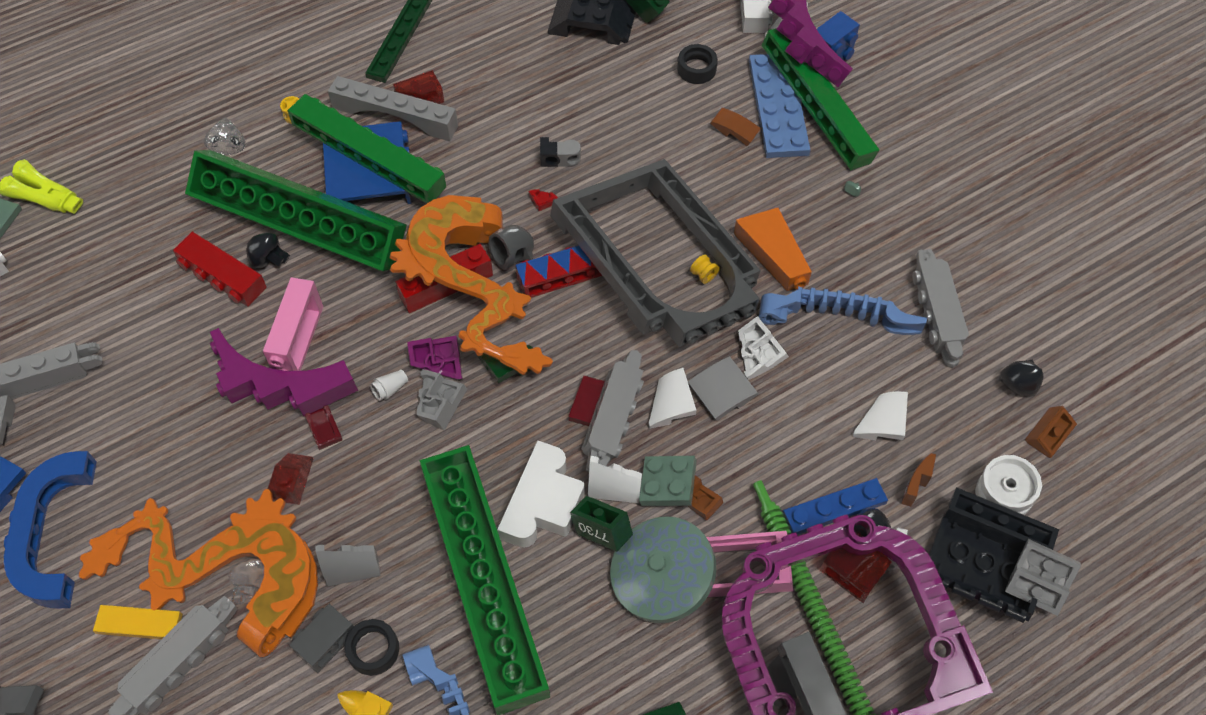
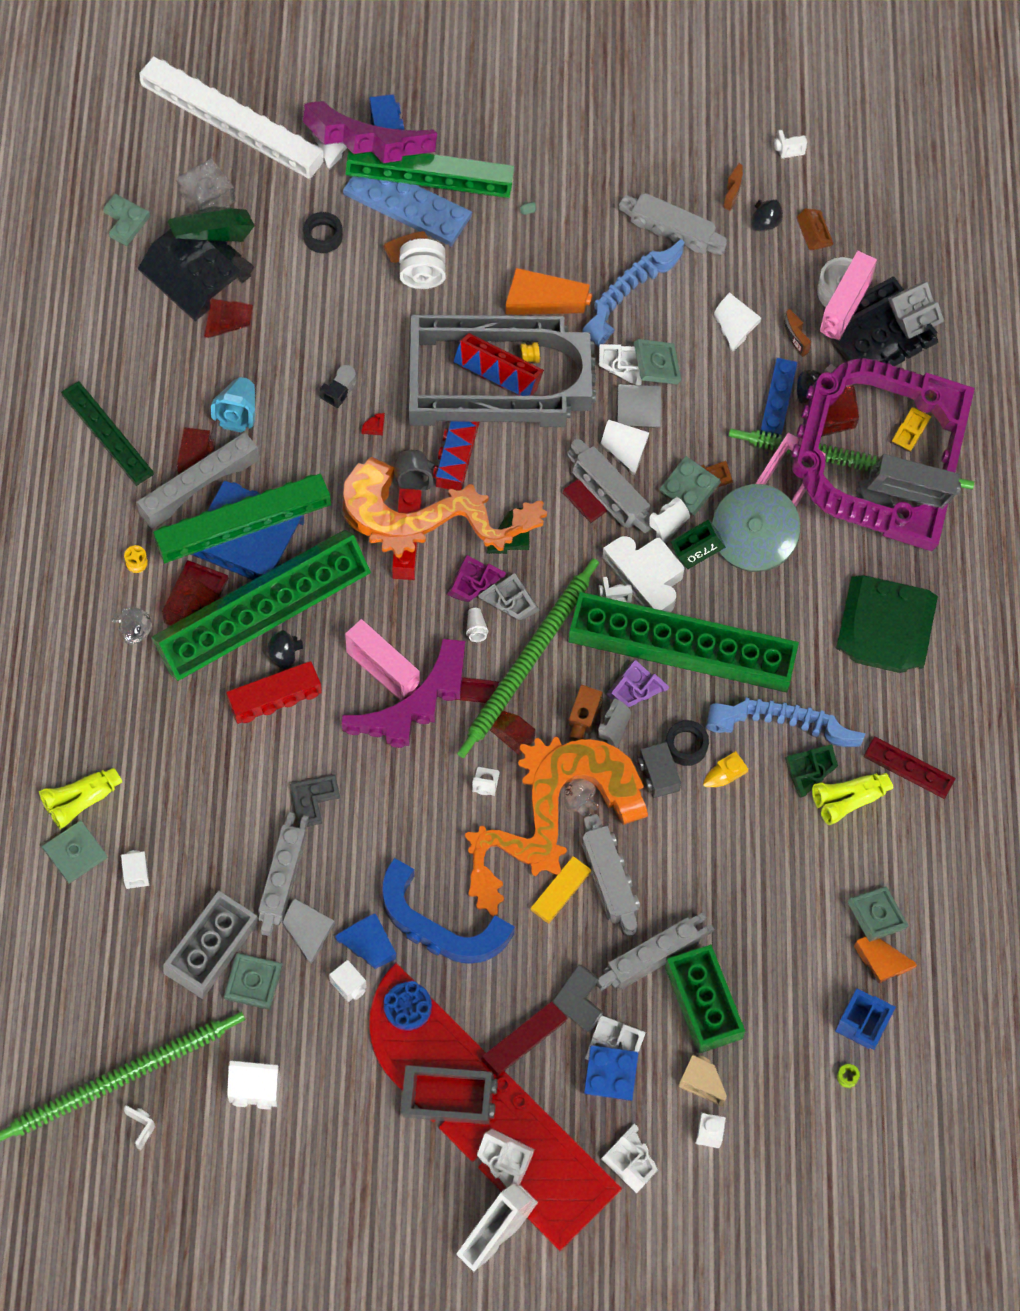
camera: 60 degrees left, 5 degrees up
(129, 352) = (310, 793): none -> dark grey tile
(216, 487) = (485, 786): none -> white bracket
(271, 157) = (187, 598): none -> clear red slope
(290, 446) = (527, 658): none -> bright green hose
(306, 164) = (211, 578): none -> dark red tile
(345, 526) = (586, 705): none -> dark orange torso
(411, 560) = (636, 685): none -> medium lavender slope
(484, 92) = (235, 405): none -> medium azure cone
(498, 480) = (617, 592): none -> white bracket
(565, 48) = (227, 317): none -> clear red slope
(668, 251) = (498, 365): none -> red brick
(721, 138) = (422, 263): none -> white wheel
(780, 374) = (657, 361): none -> sand green plate
(901, 661) = (911, 429): none -> yellow slope
(988, 492) = (848, 295): none -> bright pink window
(1033, 331) = (733, 186): none -> dark orange slope
(1118, 355) = (790, 147): none -> white bracket

